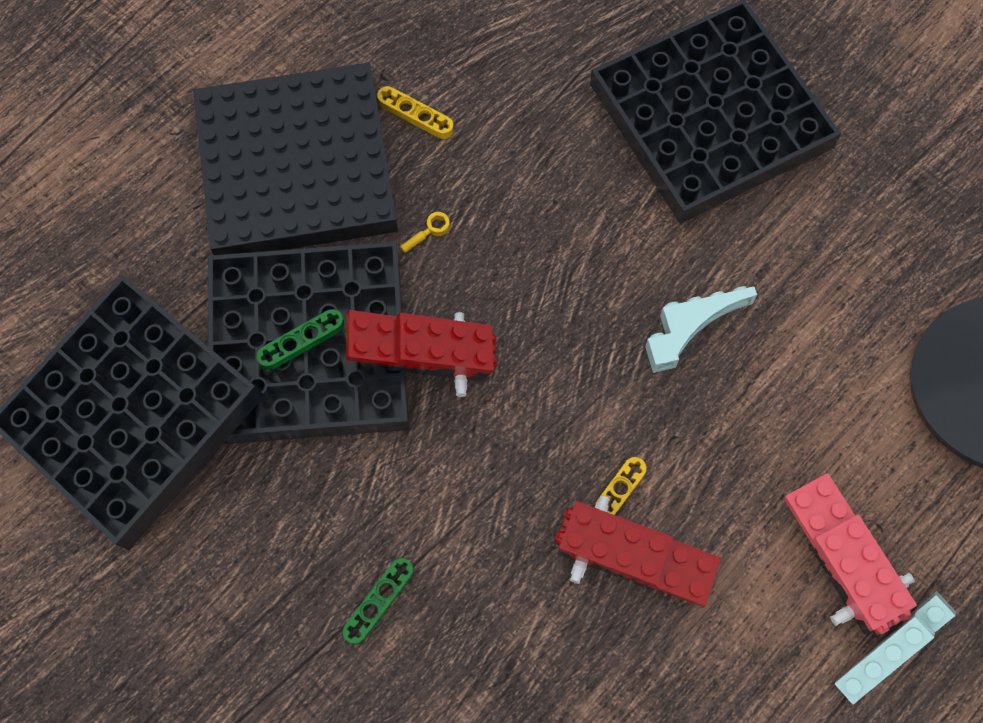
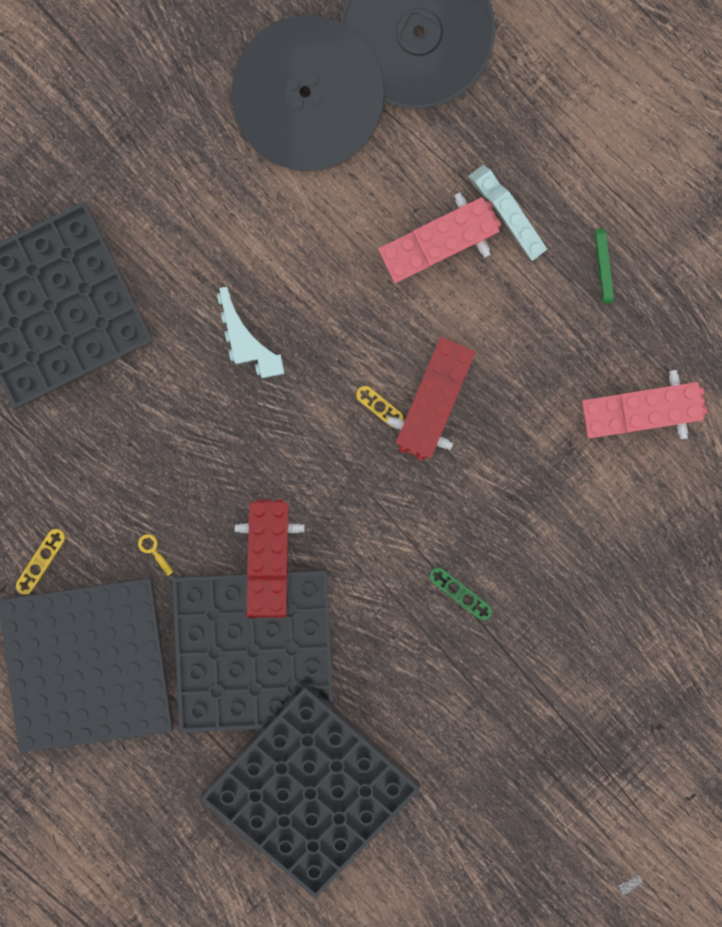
camera: 90 degrees left, 20 degrees up
(298, 336) = (259, 653): green beam -> none

